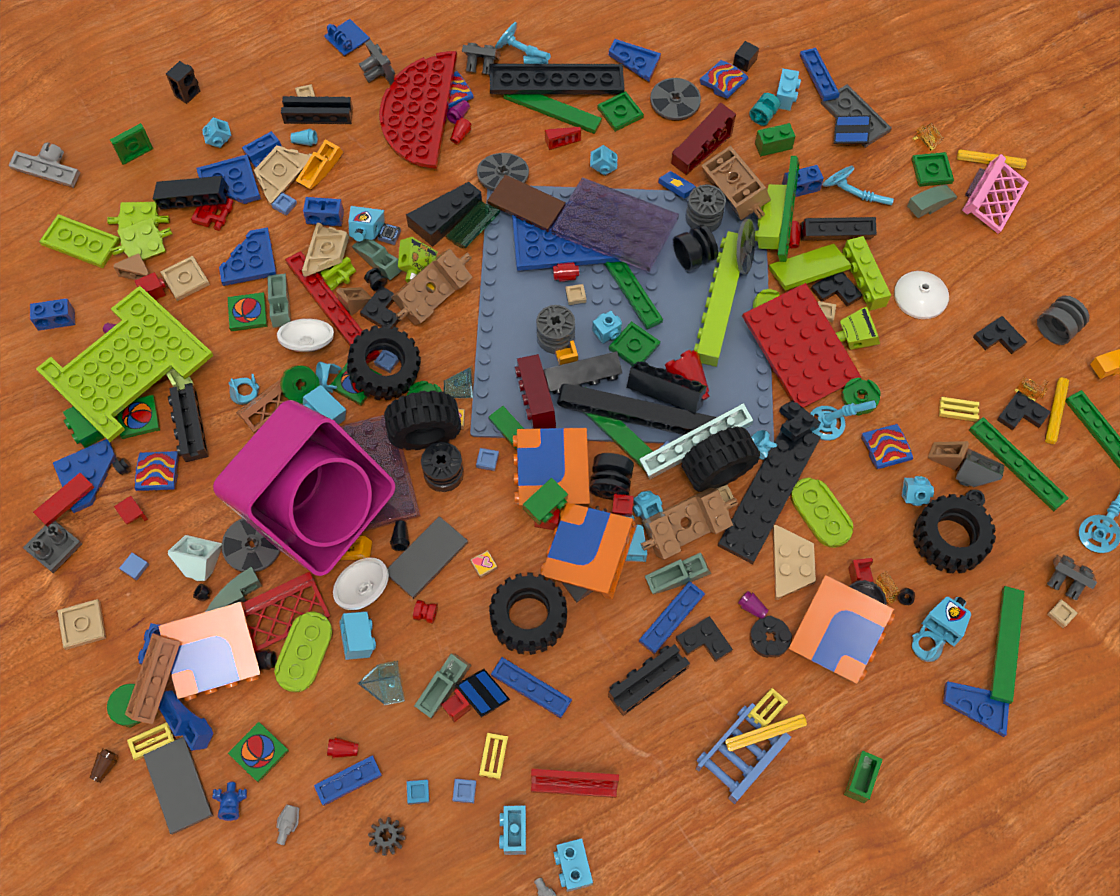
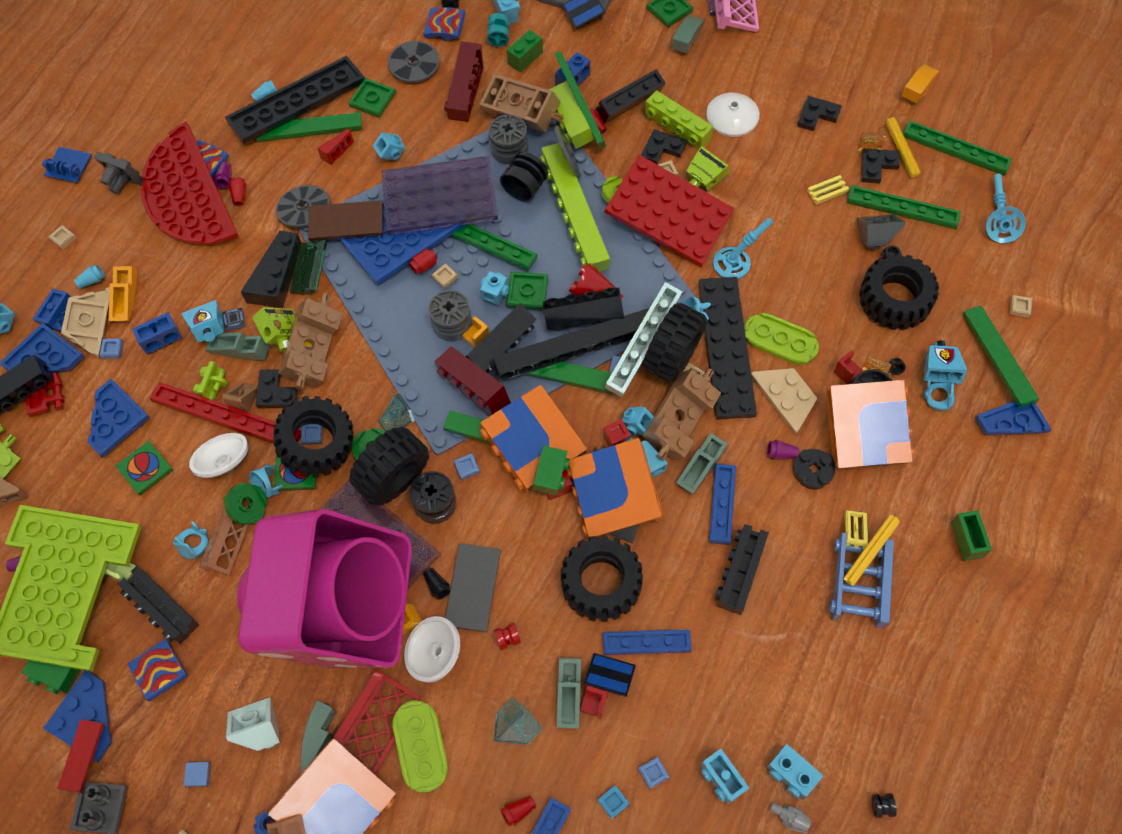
camera: 30 degrees left, 0 degrees up
(122, 466) = (118, 687): black plate -> none
(129, 510) = (157, 724): red panel -> none
(139, 417) = (104, 630): tile -> none
(152, 285) = (30, 497): red brick -> none
(185, 278) = (58, 472): tan tile -> none
(201, 592) = (283, 755): black hinge -> none
(239, 553) = (301, 697): dark grey piece -> none
(266, 659) = (390, 776): black cone -> none
(278, 300) = (169, 439): sand green slope -> none
(316, 110) = (84, 245): black brick -> none
(325, 249) = (183, 366): tan wing -> none
(325, 404) = (279, 504): medium azure brick -> none
(356, 635) = (460, 698): medium azure brick -> none
(375, 279) = (250, 367): black wheel -> none
(474, 51) = (203, 113): dark grey plate -> none
(484, 564) = (529, 561): tile -> none
(490, 774) = (665, 742): light yellow tile -> none
(509, 38) = (255, 86): medium azure dish -> none
(574, 783) = (744, 699): red fence -> none
(611, 475) = (589, 413): black wheel -> none
(637, 59) = (354, 45): blue wing -> none
(676, 184) = (467, 133): blue tile -> none
(705, 634) = (761, 500): black plate -> none
(799, 422) = (712, 272): black plate -> none
(809, 266) = (628, 141): lime tile -> none
(840, 180) = (602, 54): medium azure dish -> none
(861, 386) = (739, 216): green plate -> none
(887, 446) = (794, 253): slope -> none
(917, 490) = (845, 274): medium azure brick -> none
(948, 453) = (848, 229): medium nougat slope -> none
(1063, 320) = (859, 71): dark grey wheel -> none
(1066, 567) = (1015, 264): dark grey plate -> none

